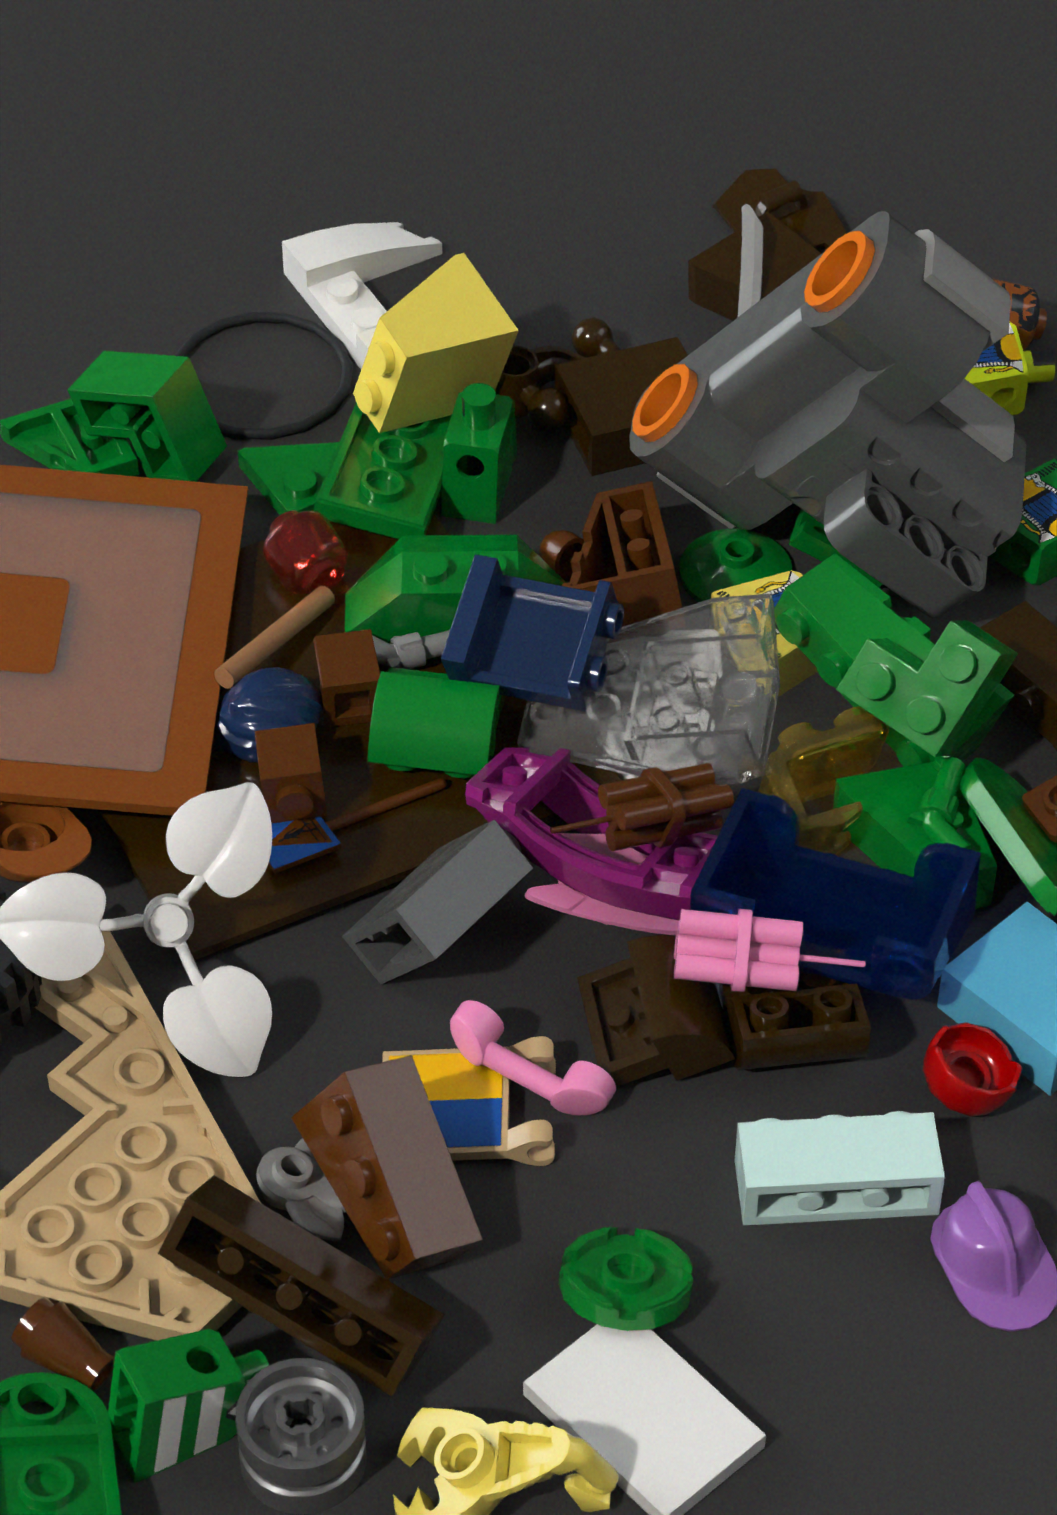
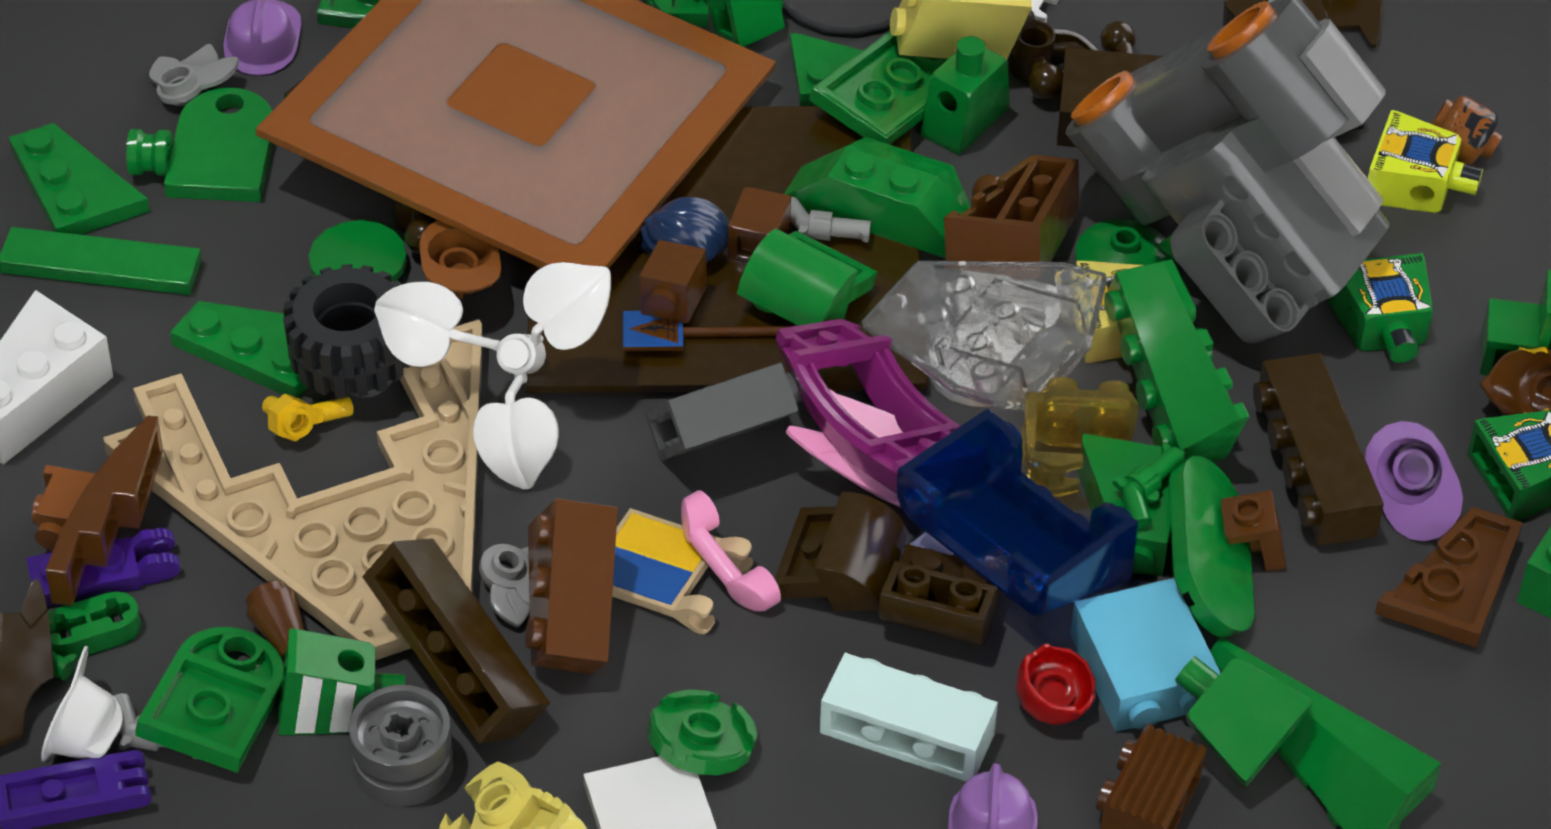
camera: 25 degrees right, 0 degrees up
(274, 637) = (725, 178): medium nougat bar -> none
(305, 551) = (785, 124): clear red head -> none
(532, 636) = (900, 240): dark blue panel -> none
(660, 807) = (918, 400): reddish brown piece -> none
(742, 950) = (914, 527): bright pink piece -> none
(930, 699) = (1180, 391): green brick -> none

